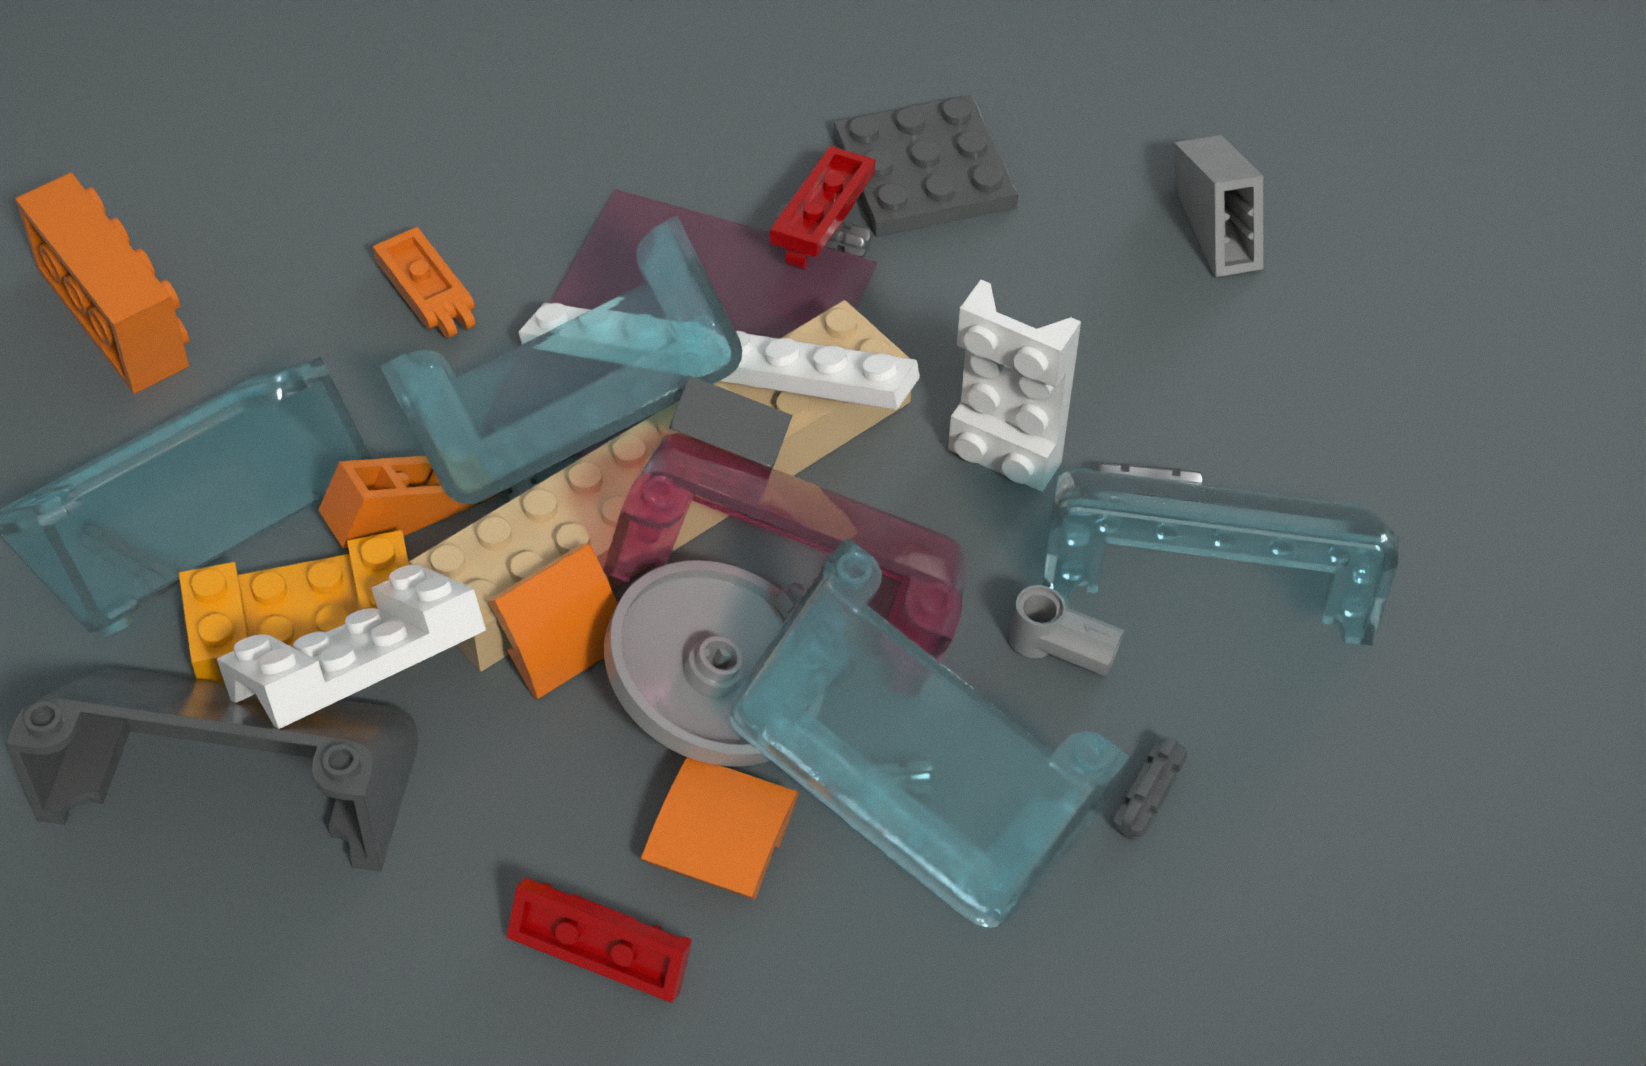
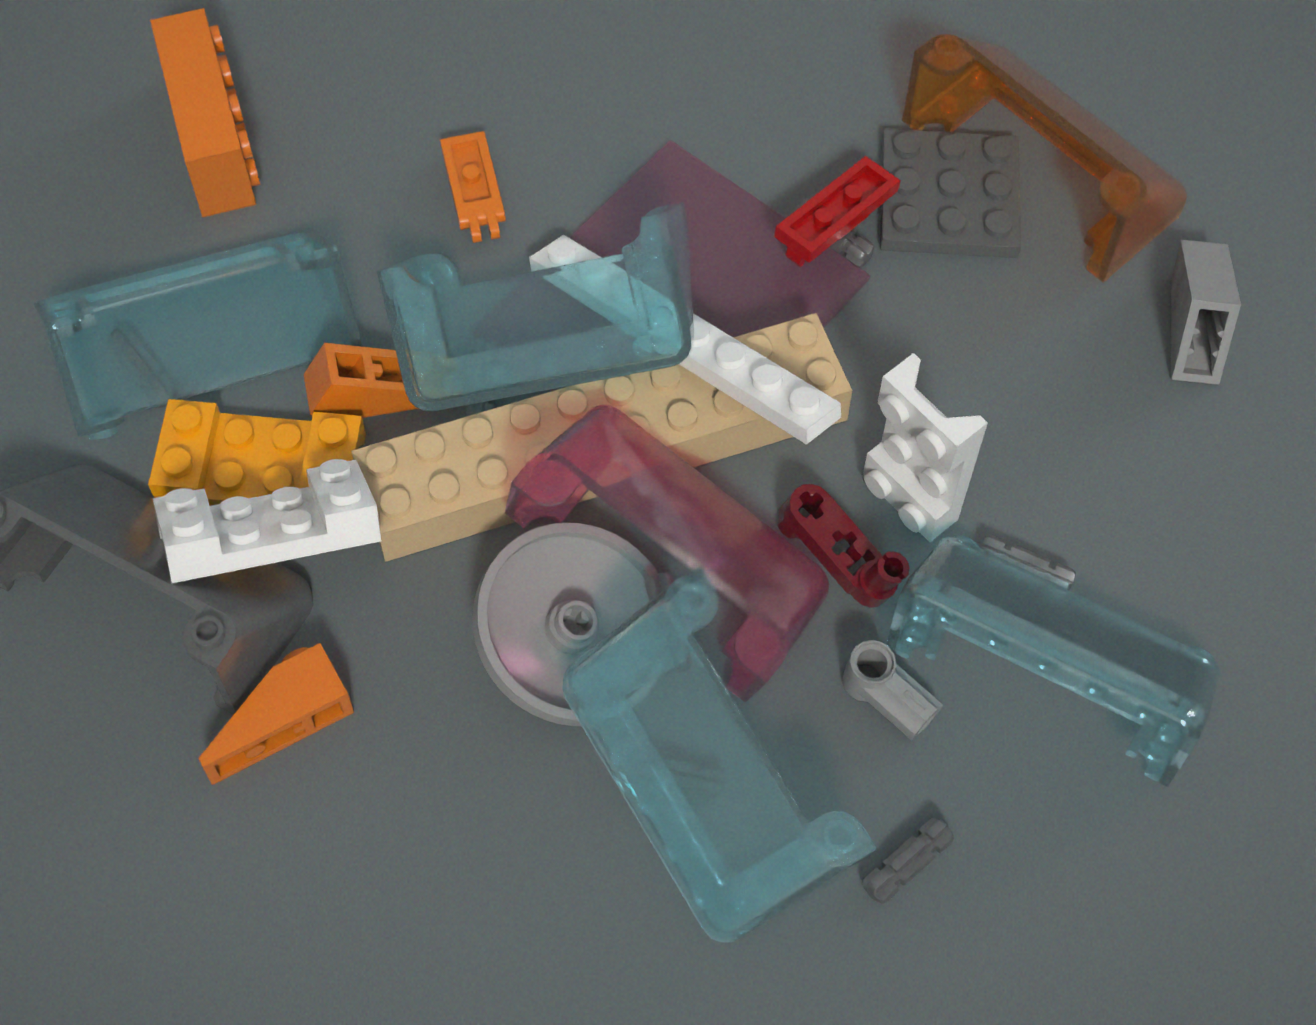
camera: 20 degrees right, 10 degrees up
(439, 835) = (283, 709): none -> orange slope
(557, 619) = (453, 540): orange slope -> none
(599, 939) = (383, 843): red plate -> none
(720, 827) = (522, 775): orange slope -> none
(730, 421) = (660, 409): dark grey slope -> none
(897, 48) = (961, 75): none -> clear orange windscreen
(931, 497) = (827, 524): none -> dark red beam

